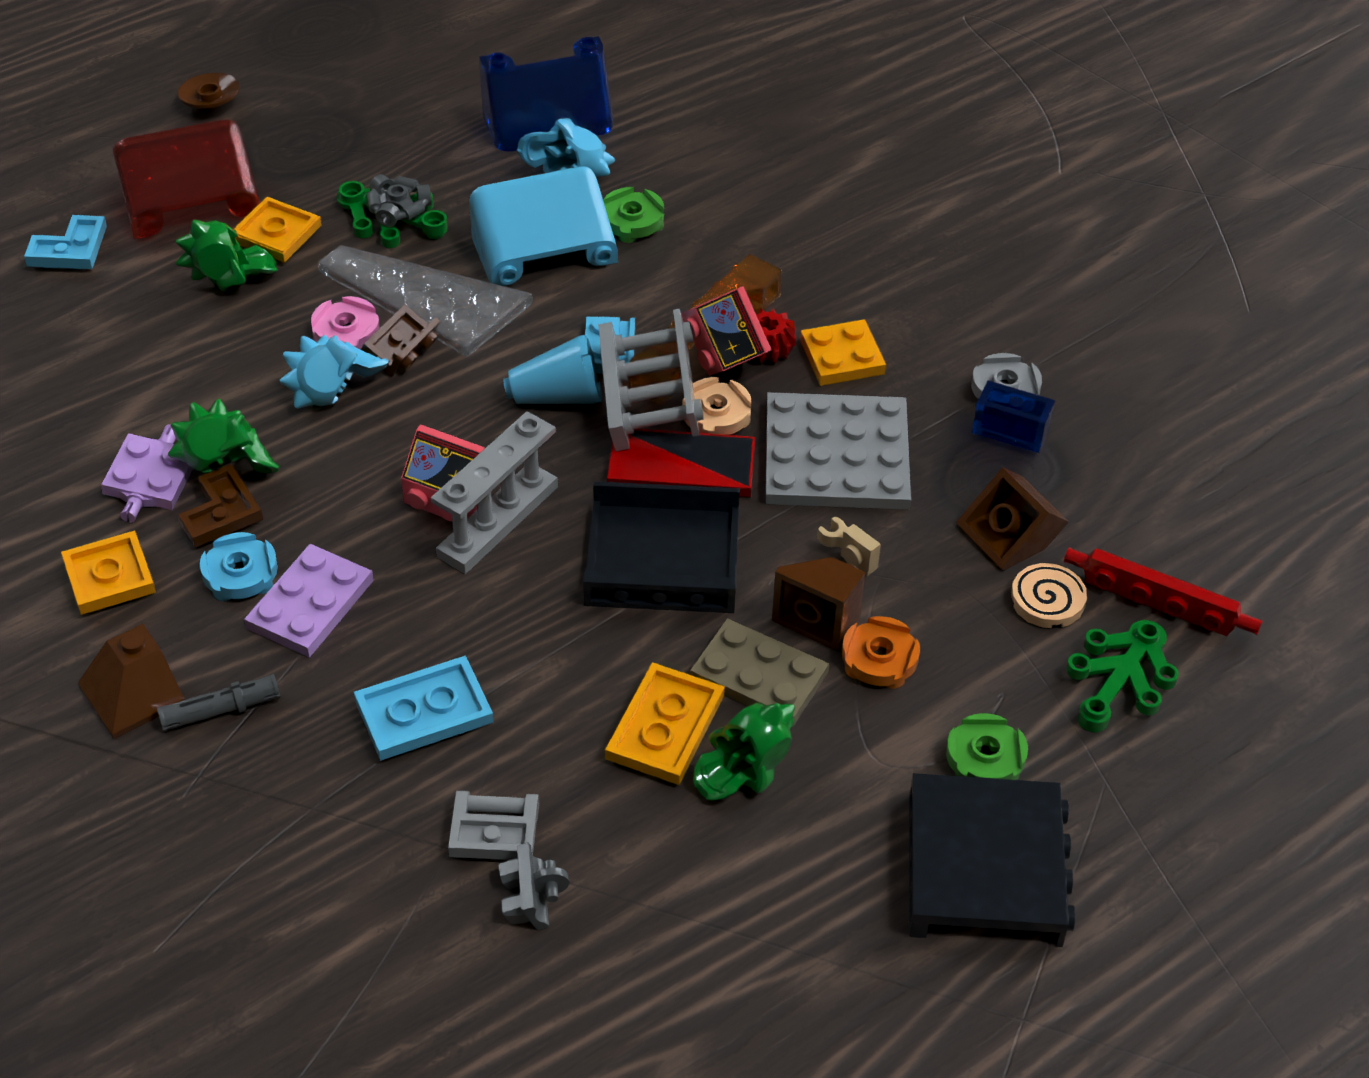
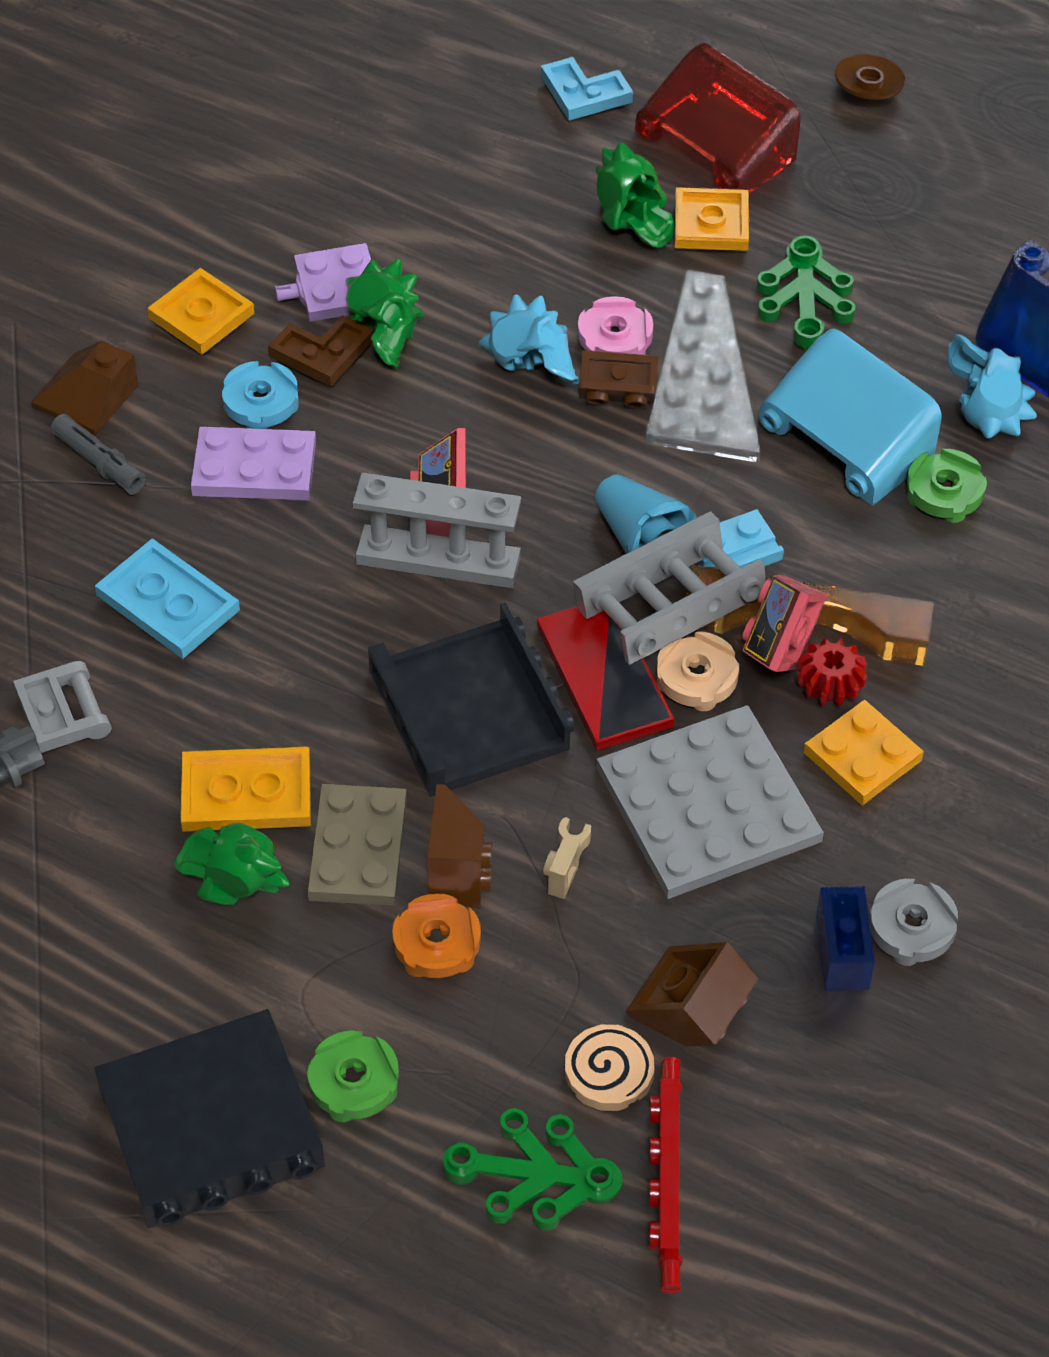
camera: 65 degrees right, 5 degrees up
(390, 195) = (816, 279): dark grey piece -> none

